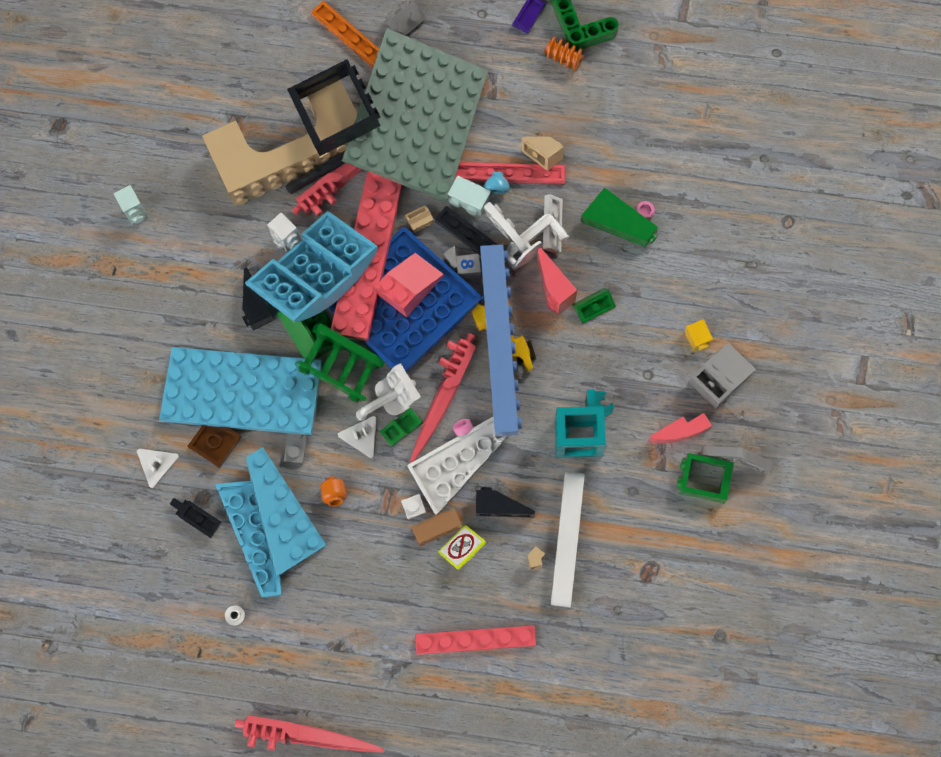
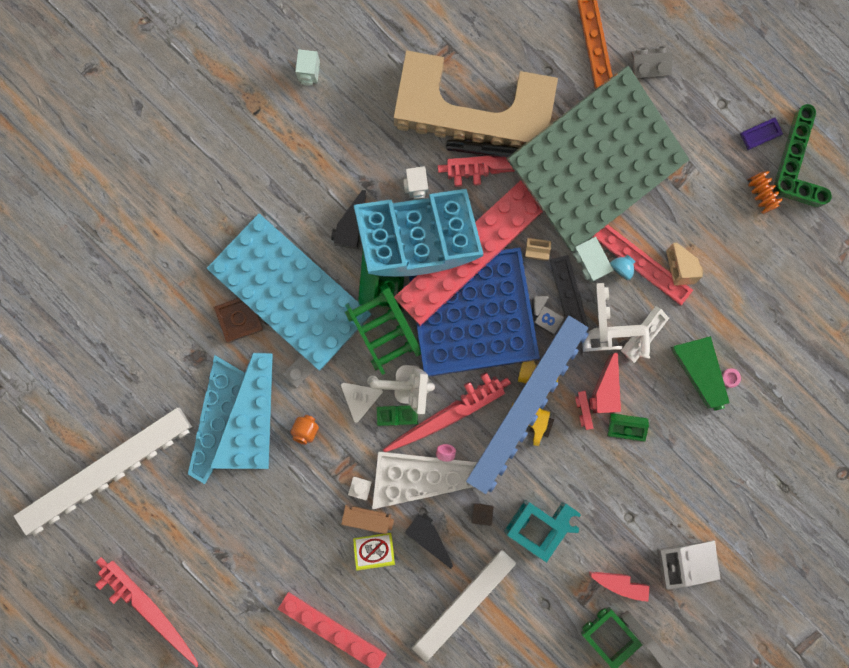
camera: 30 degrees right, 10 degrees up
(156, 464) = (179, 302): white piece -> none
(187, 647) = (102, 472): none -> white brick
(196, 517) = (181, 370): black hinge -> none
(241, 615) = (163, 472): white plate -> none
(321, 81) = (539, 75): black window -> none
(408, 284) = (488, 302): coral slope -> none
(528, 454) = (482, 514): none -> dark brown brick
(535, 558) = (425, 603): tan piece -> none
(554, 319) = (582, 402): none -> coral plate
(698, 335) = (694, 517): yellow brick -> none

